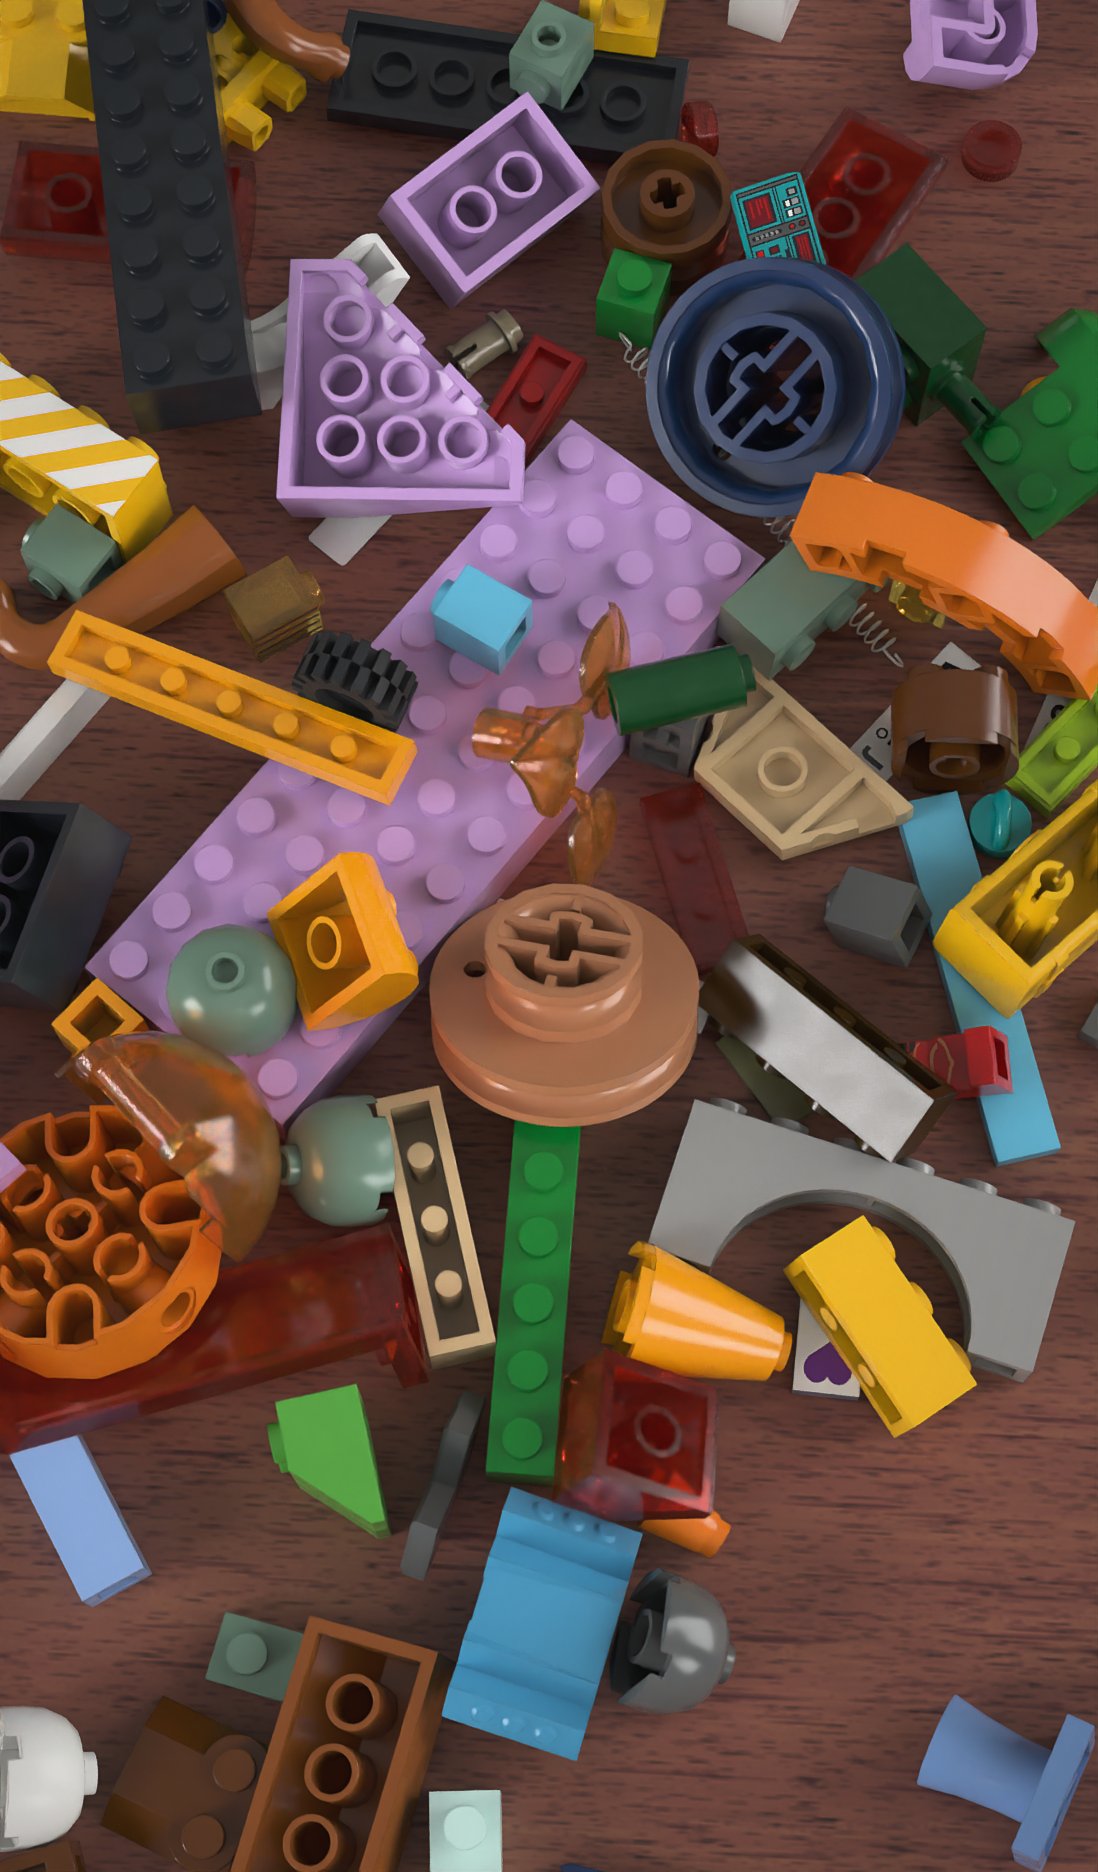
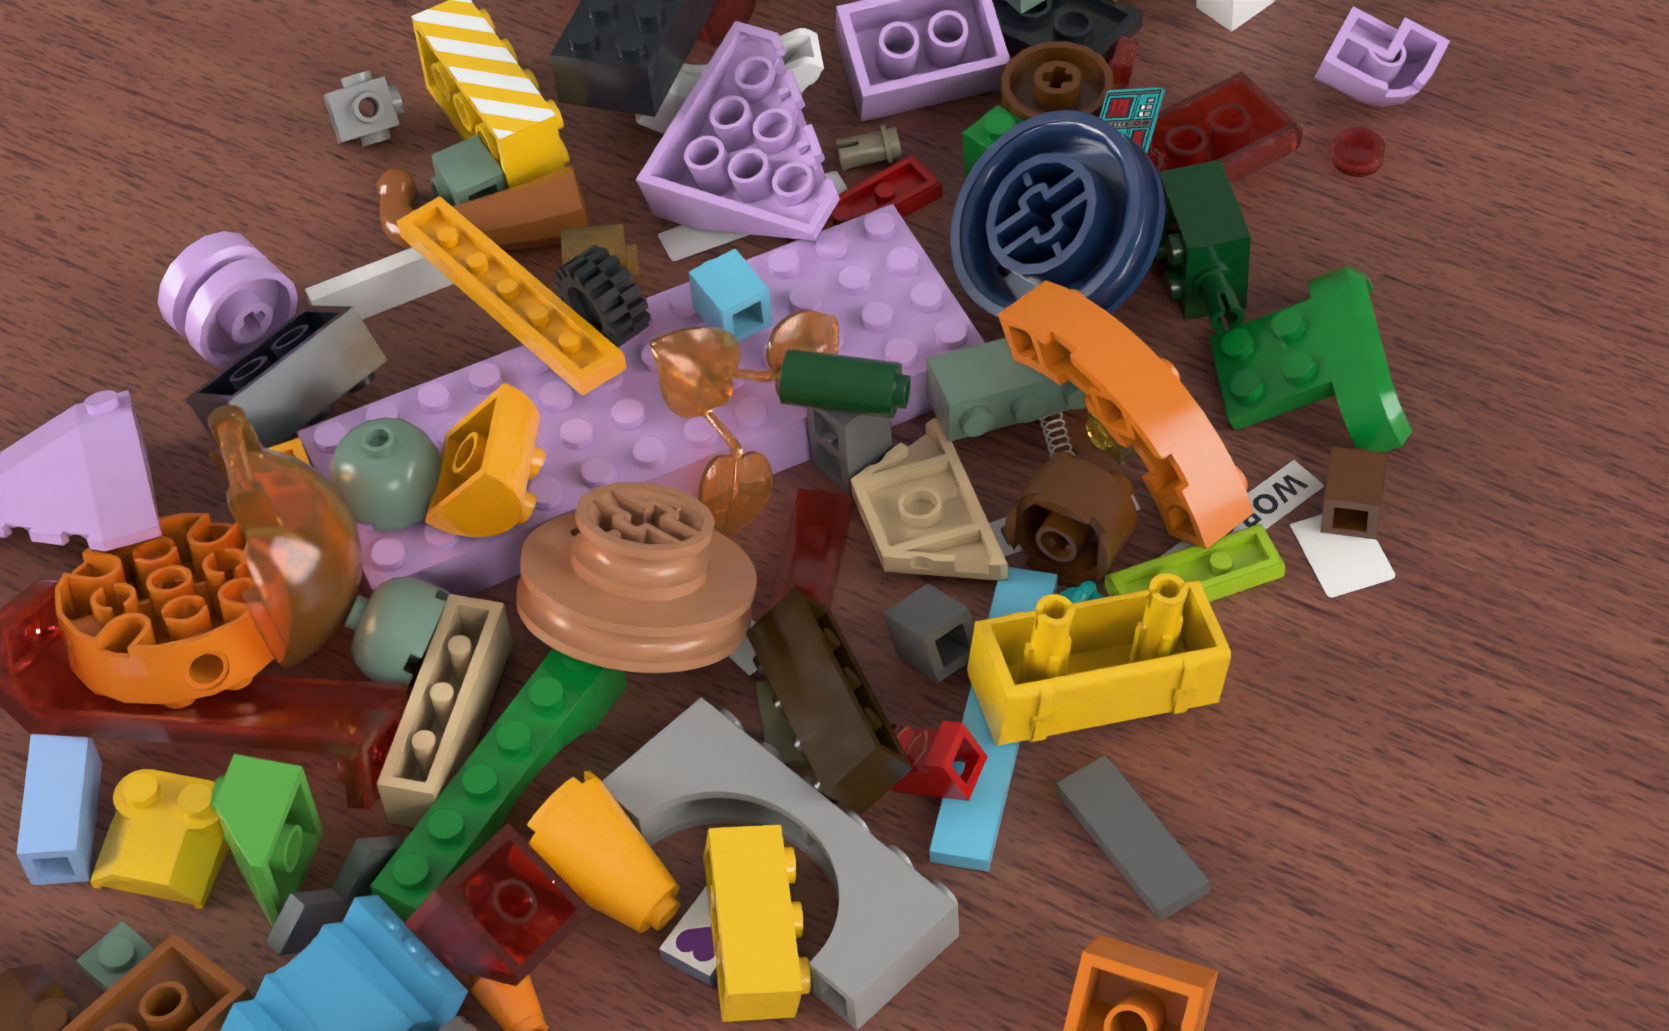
camera: 30 degrees right, 20 degrees down
(211, 1494) = (162, 838): none -> yellow slope

